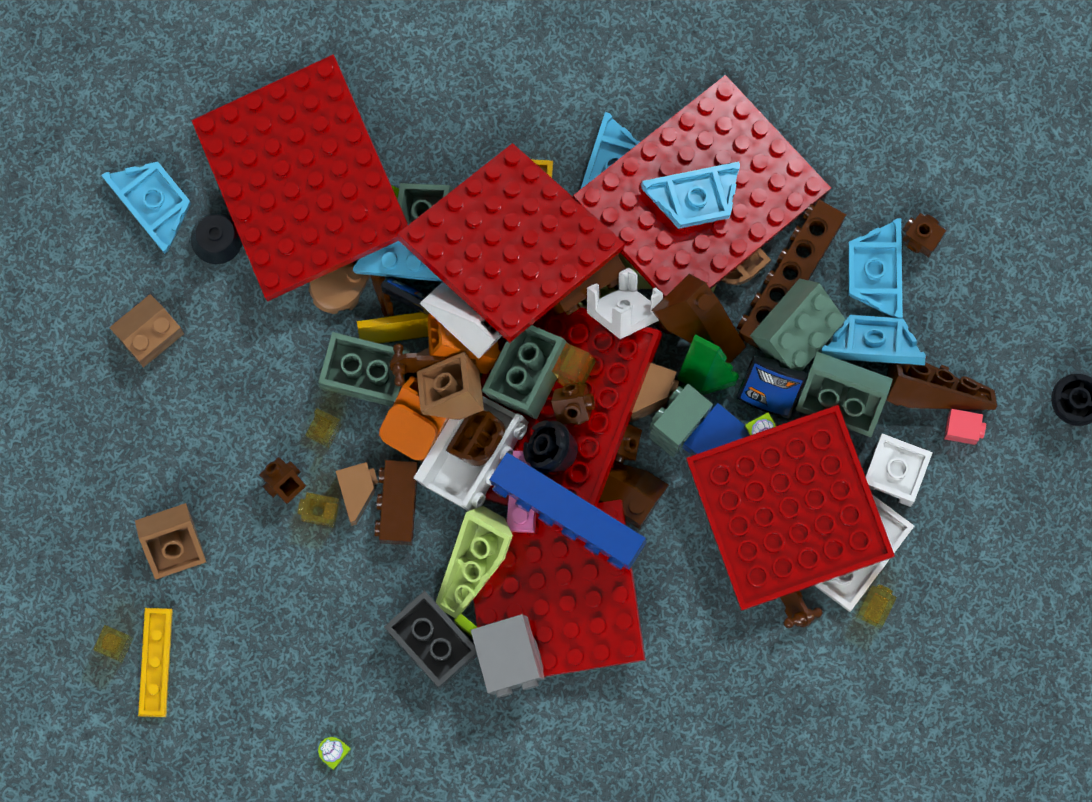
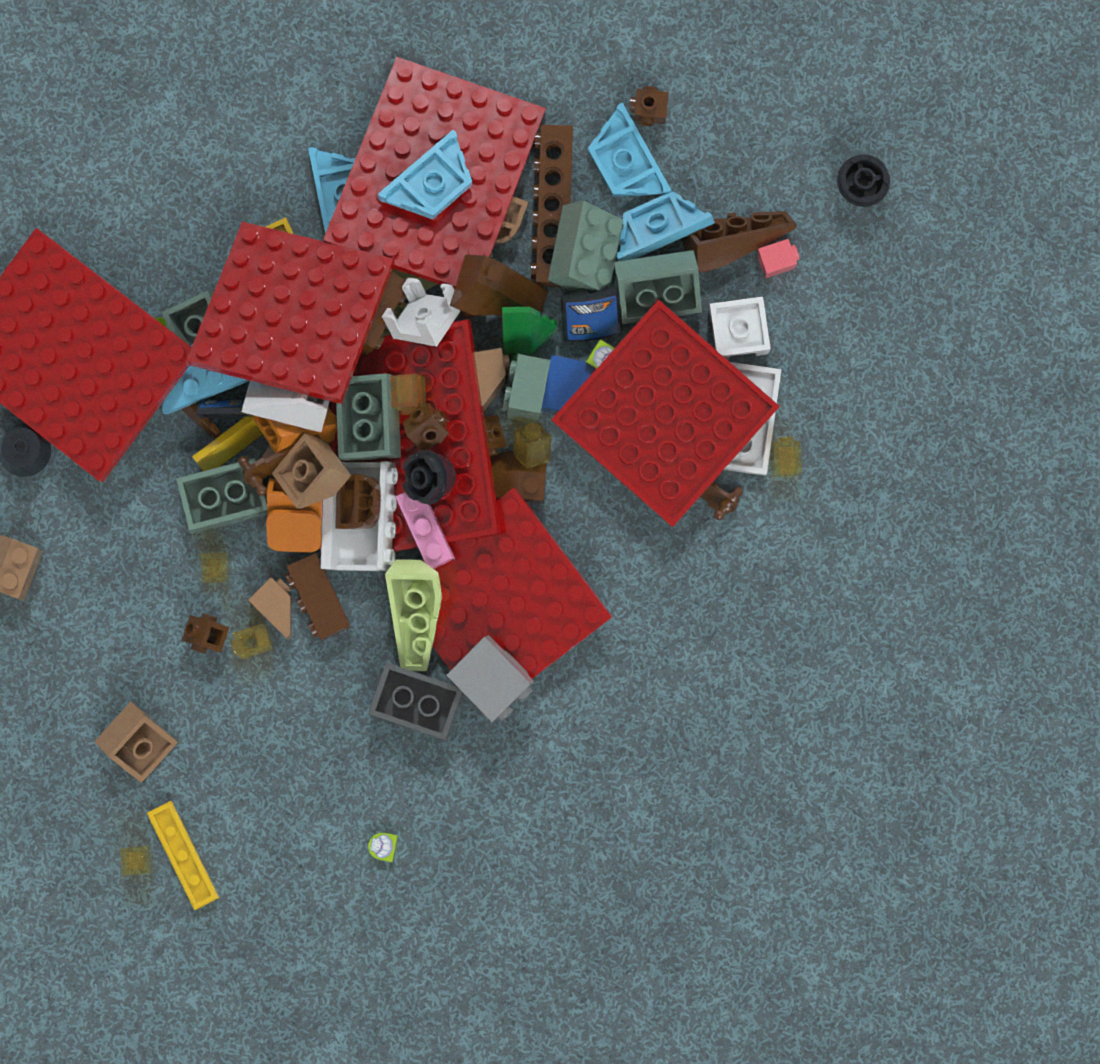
camera: 30 degrees left, 5 degrees up
(338, 289) = (159, 437): medium nougat slope -> none
(464, 625) = (438, 672): lime tile -> none
(567, 511) = (474, 524): blue brick -> none
(657, 472) = (532, 445): none -> clear yellow brick

